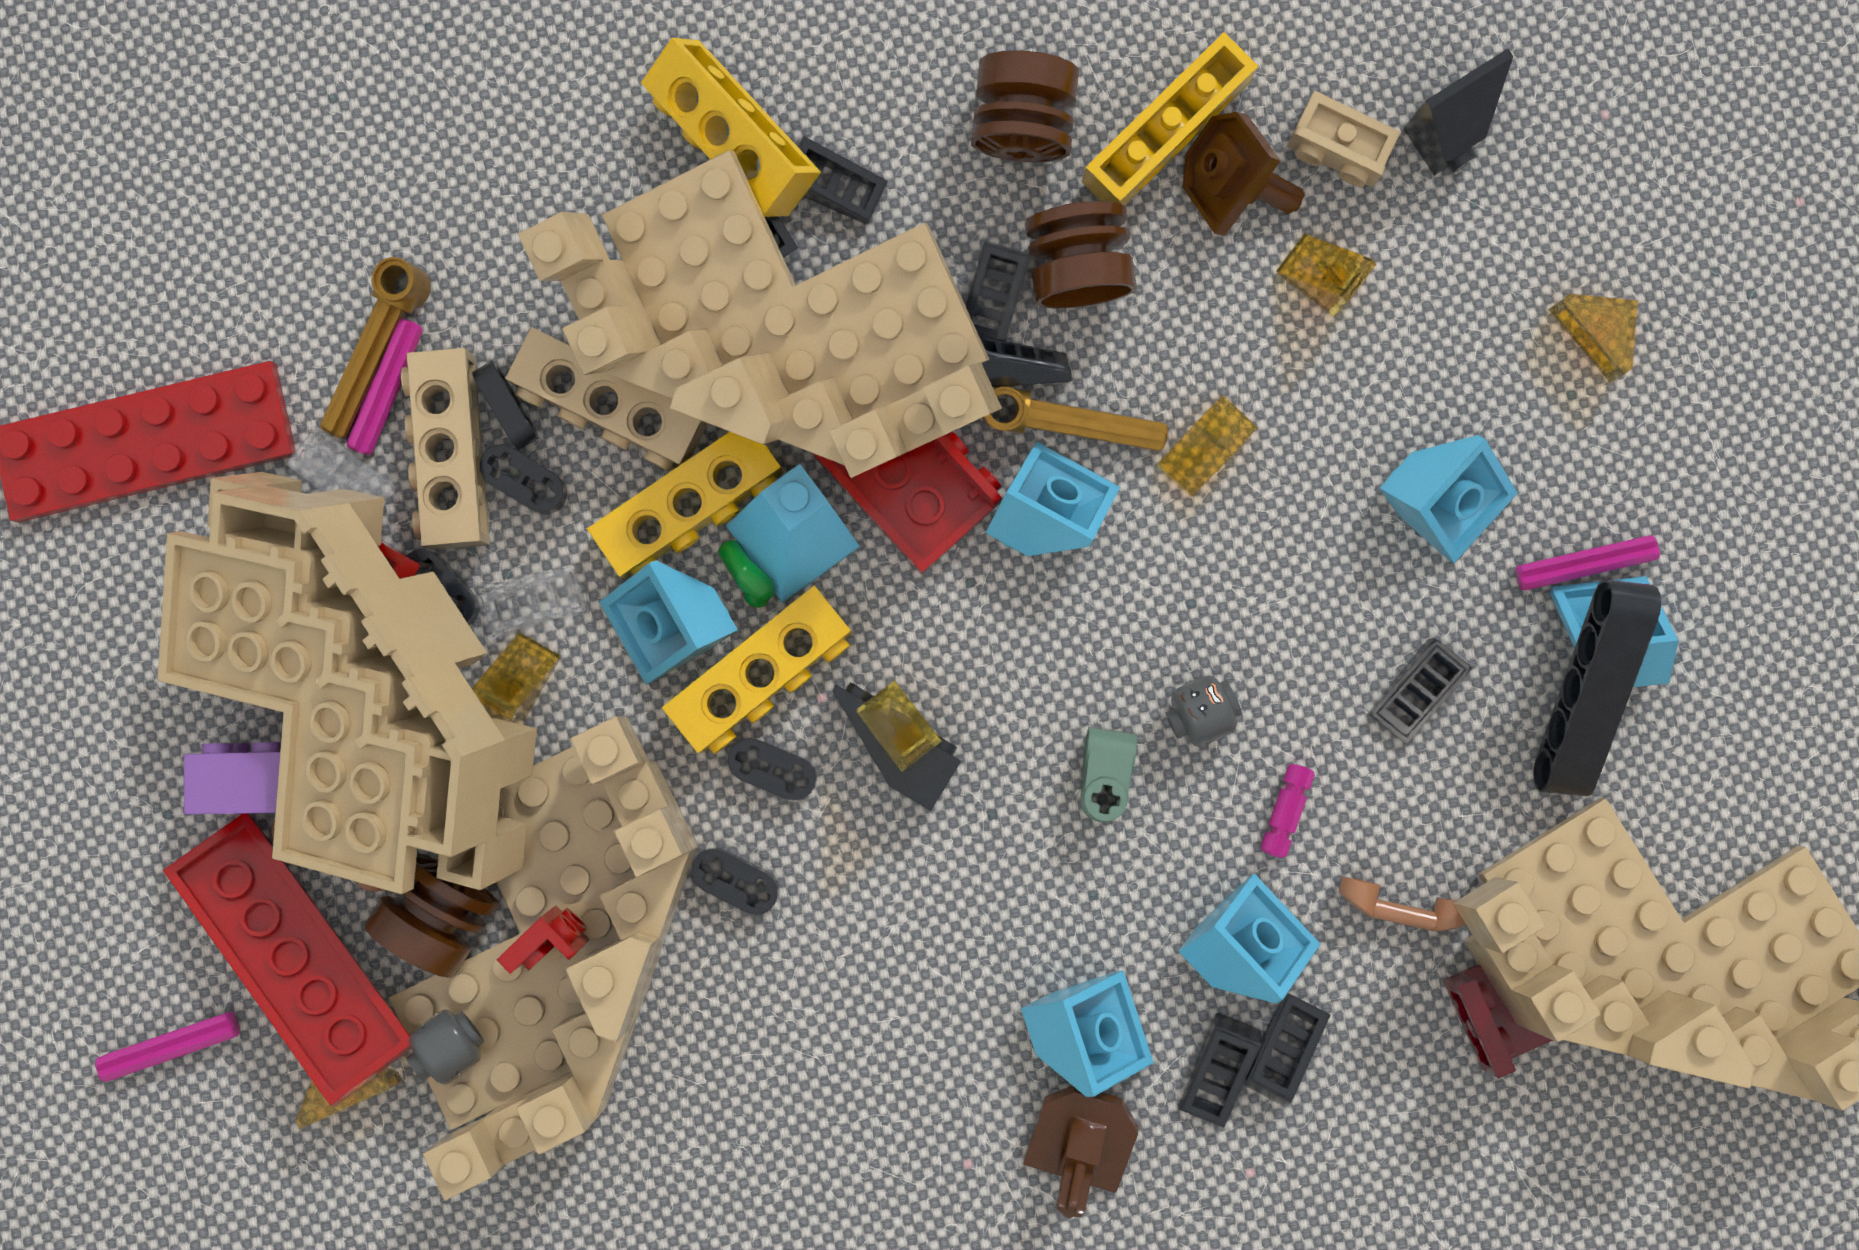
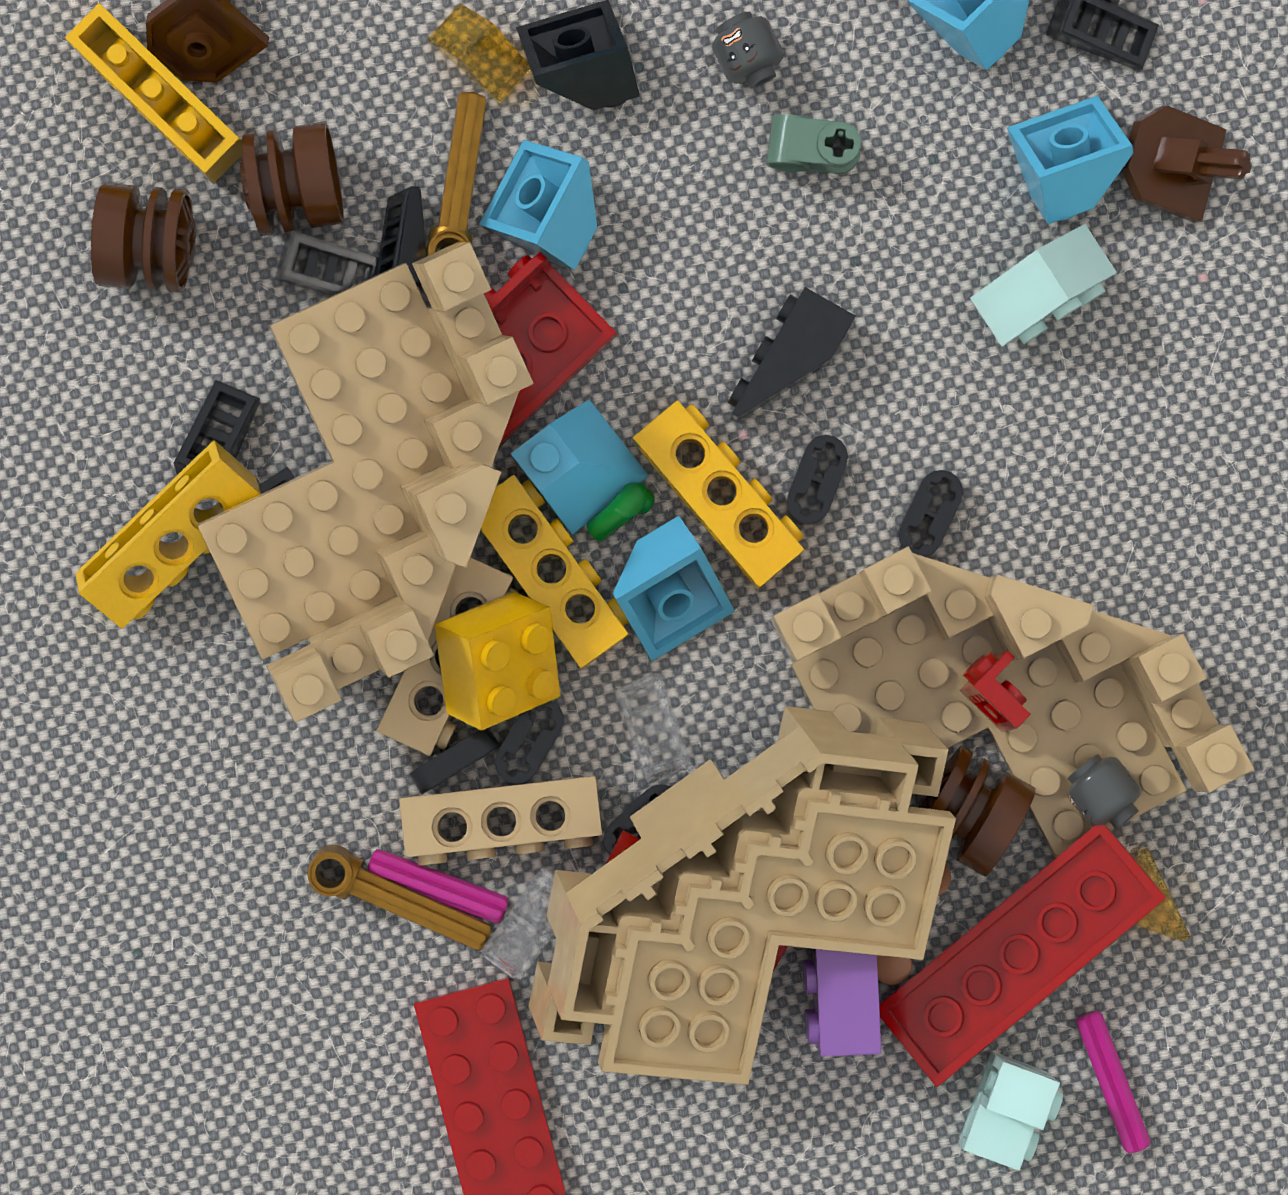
camera: 95 degrees left, 0 degrees up
(139, 943) = (1007, 1109): none -> light aqua brick
(516, 678) = (728, 735): clear yellow slope -> none
(593, 445) = (497, 660): none -> yellow brick
(898, 726) = (774, 344): clear yellow slope -> none
(956, 1004) = (1044, 284): none -> light aqua brick
(1199, 543) = (581, 56): none -> black slope

